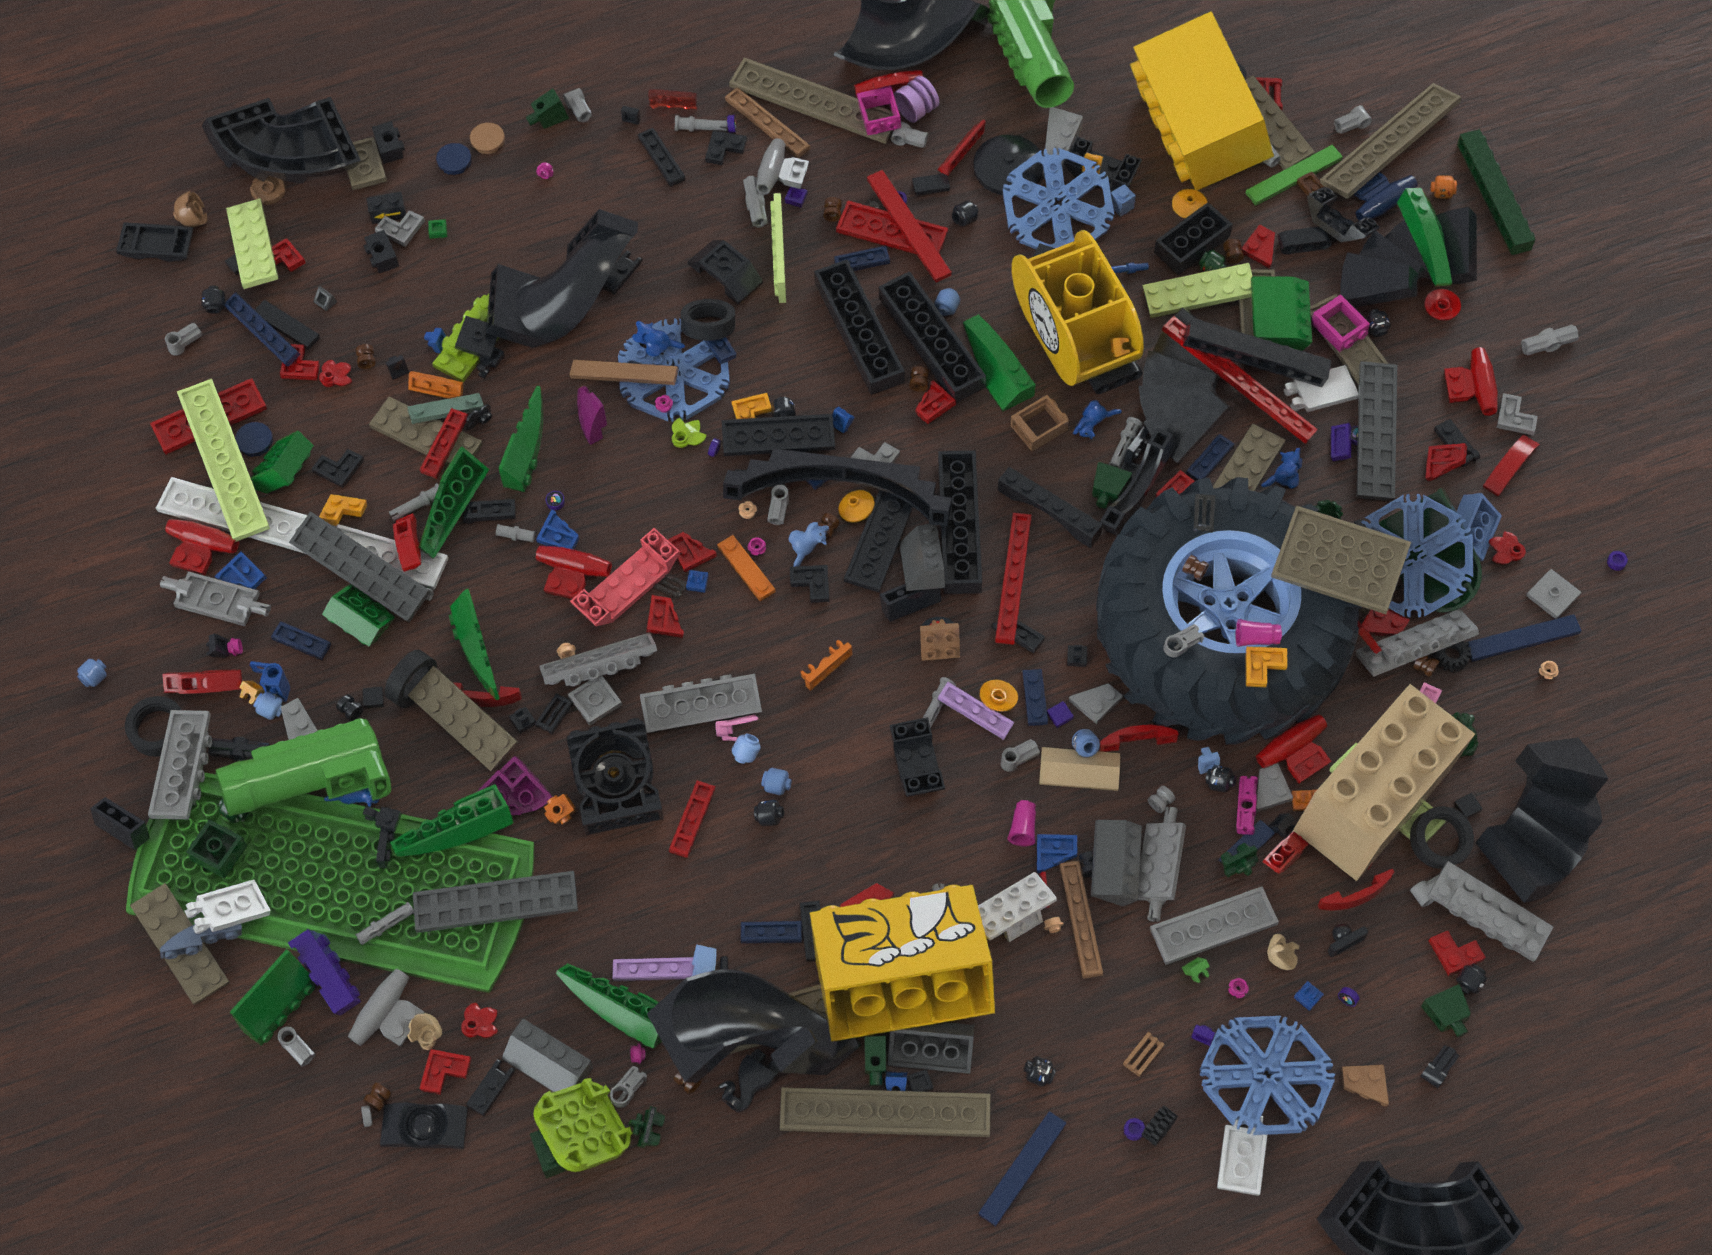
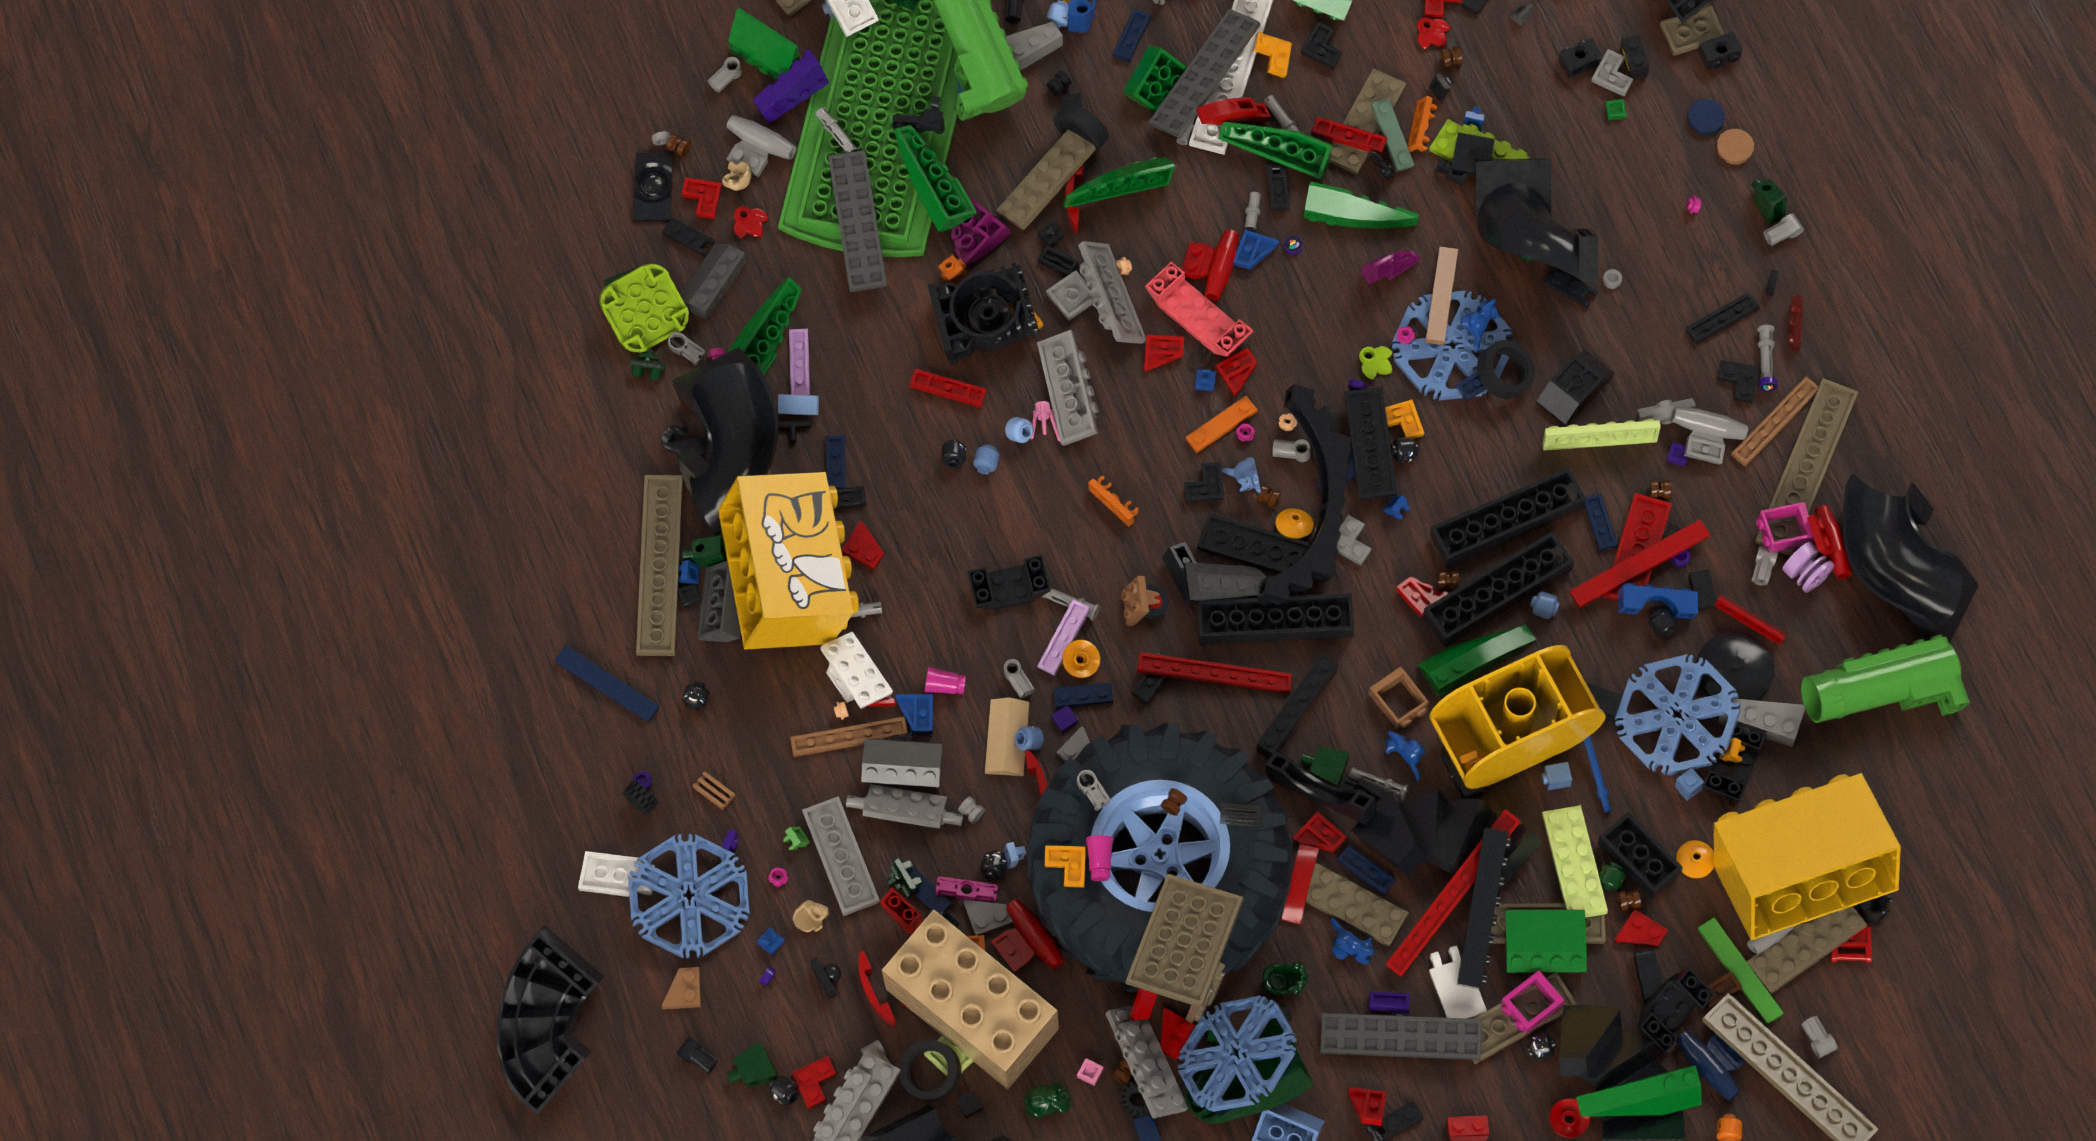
camera: 90 degrees right, 5 degrees up
(946, 225) = (1681, 602): none -> blue arch

